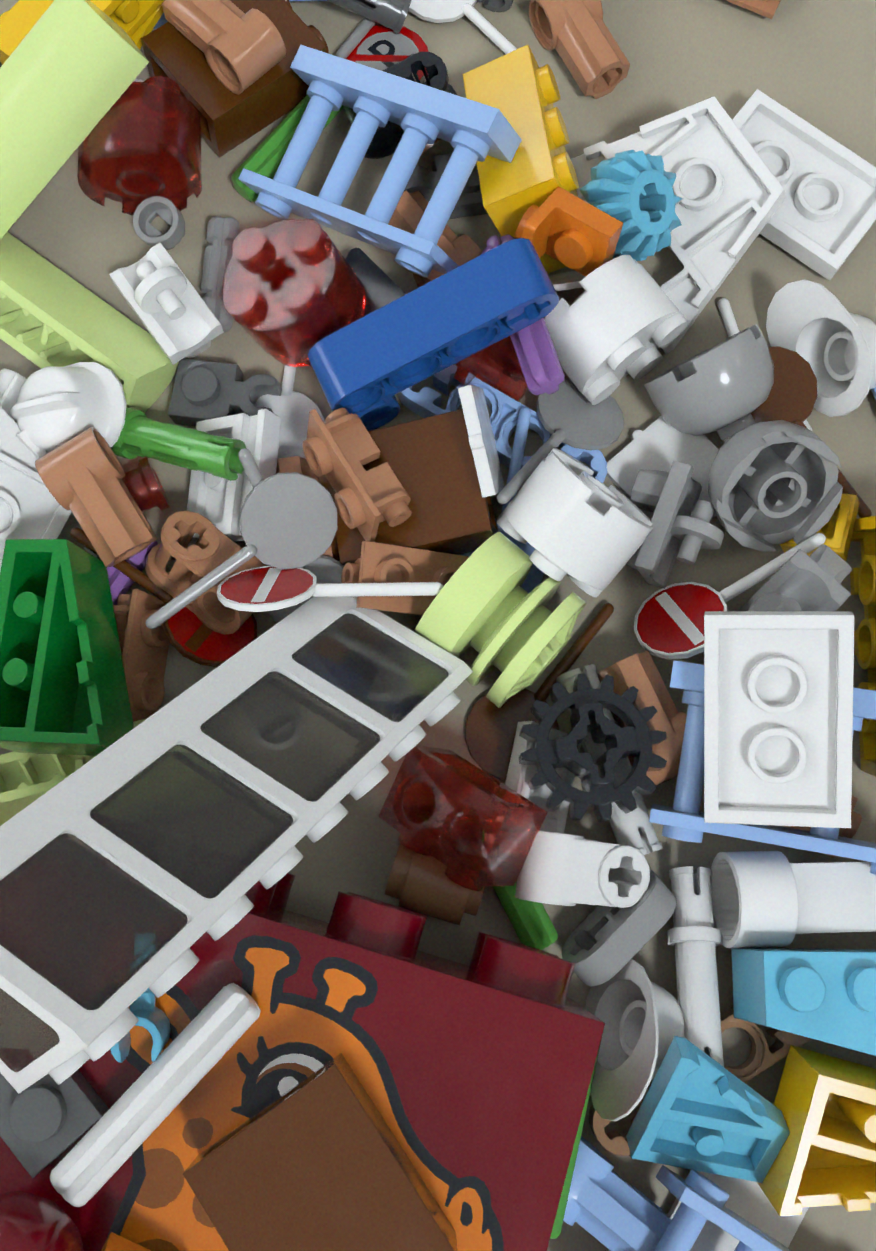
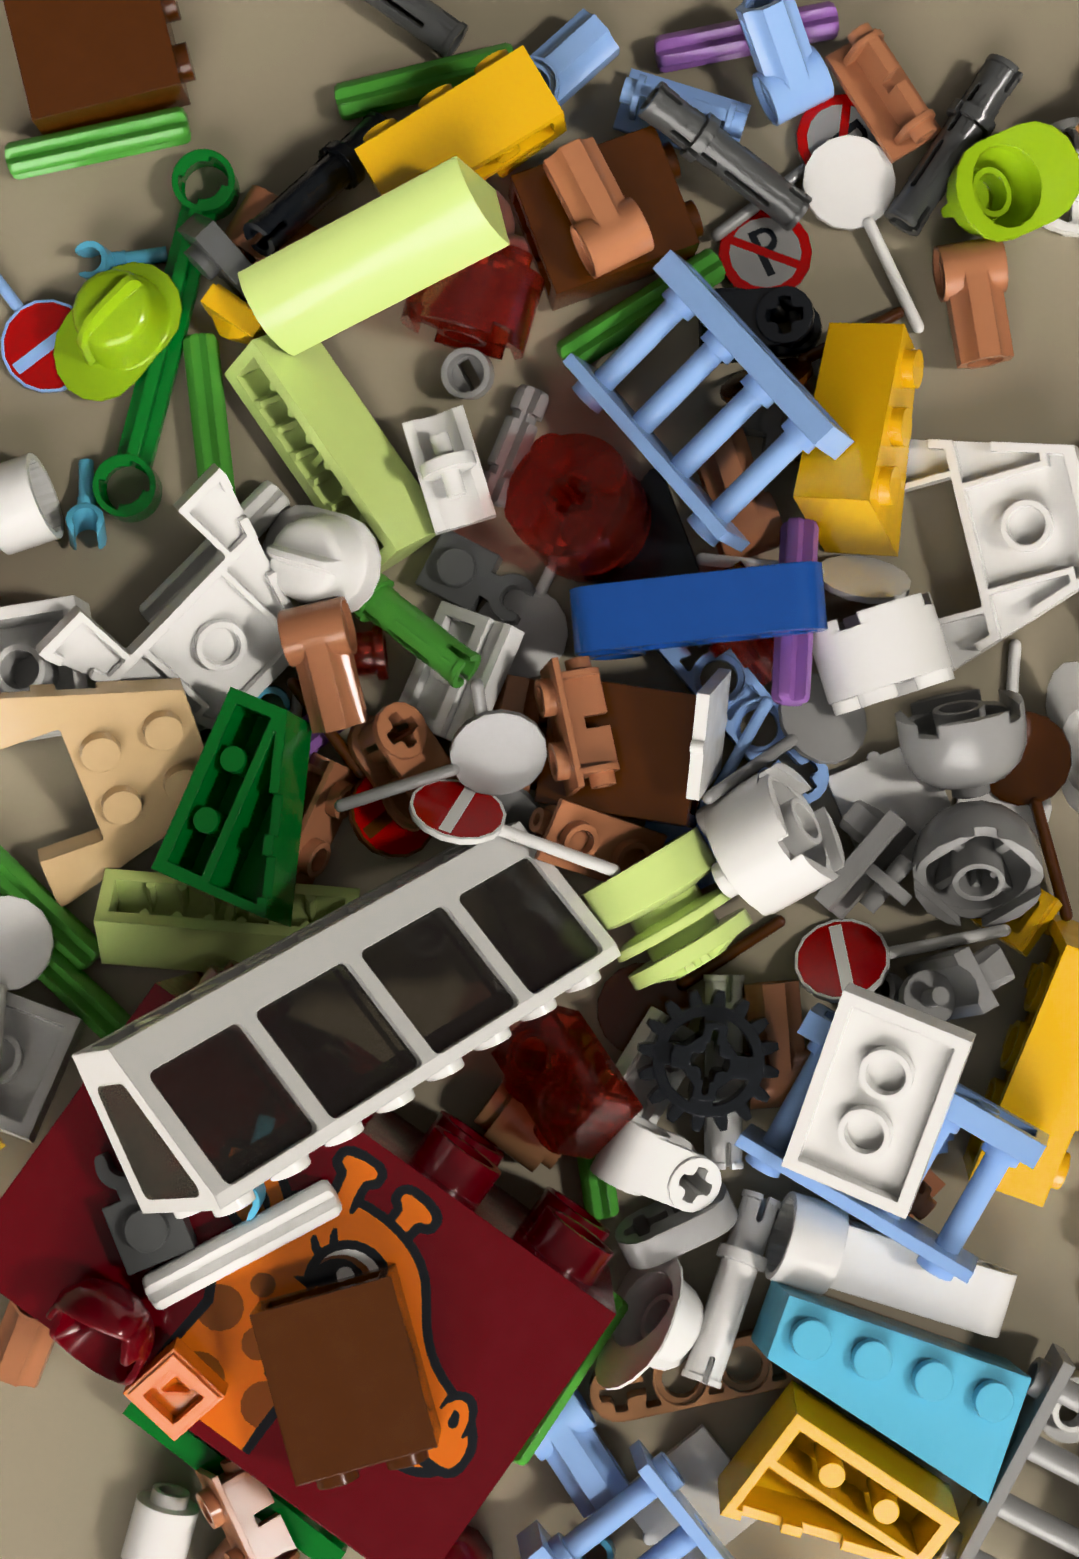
camera: 30 degrees right, 10 degrees up
(571, 231) = (871, 553): orange bracket -> none
(640, 196) = (942, 538): medium azure gear -> none
(706, 1119) = (689, 1415): medium azure wing -> none

